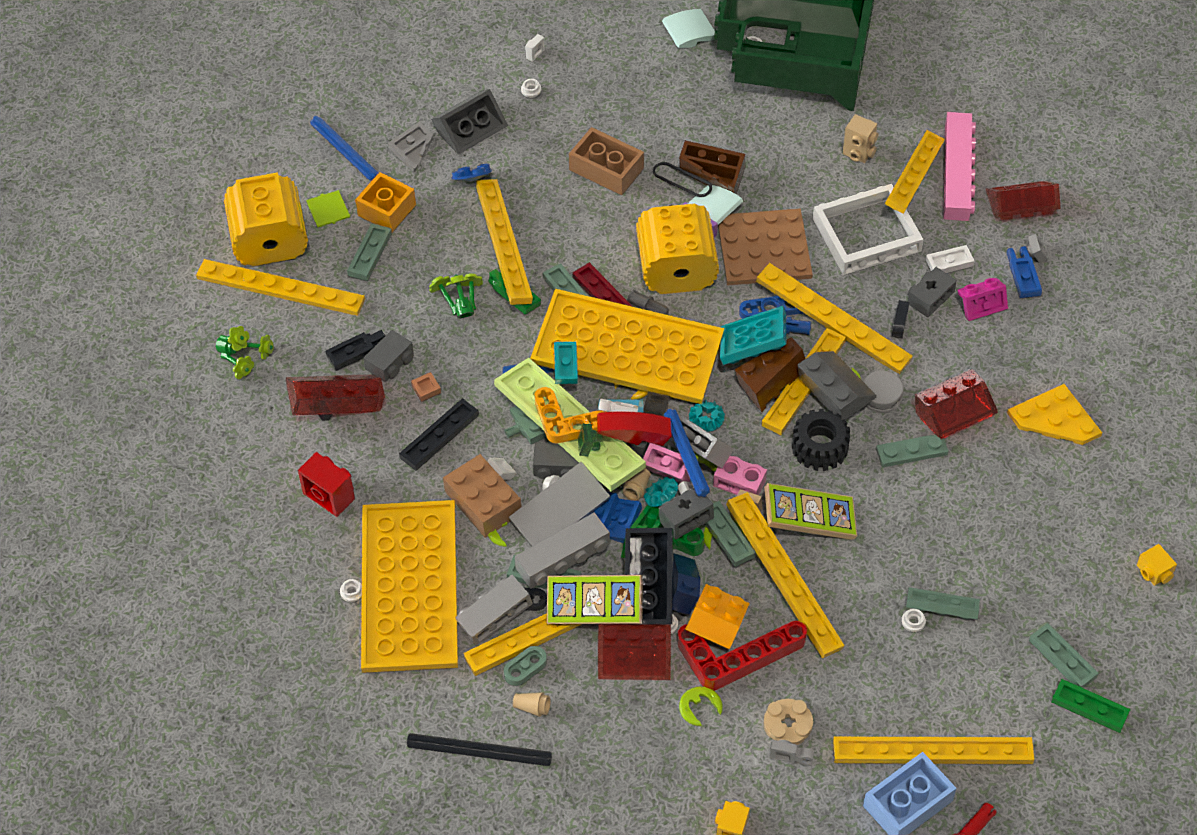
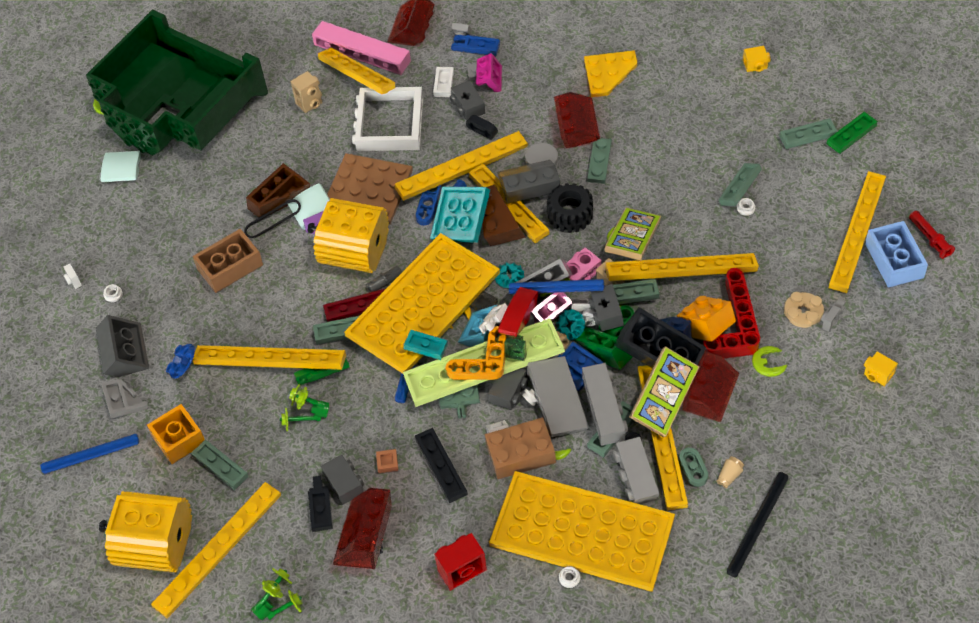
camera: 65 degrees left, 0 degrees up
(328, 208) = (150, 482): lime piece -> none

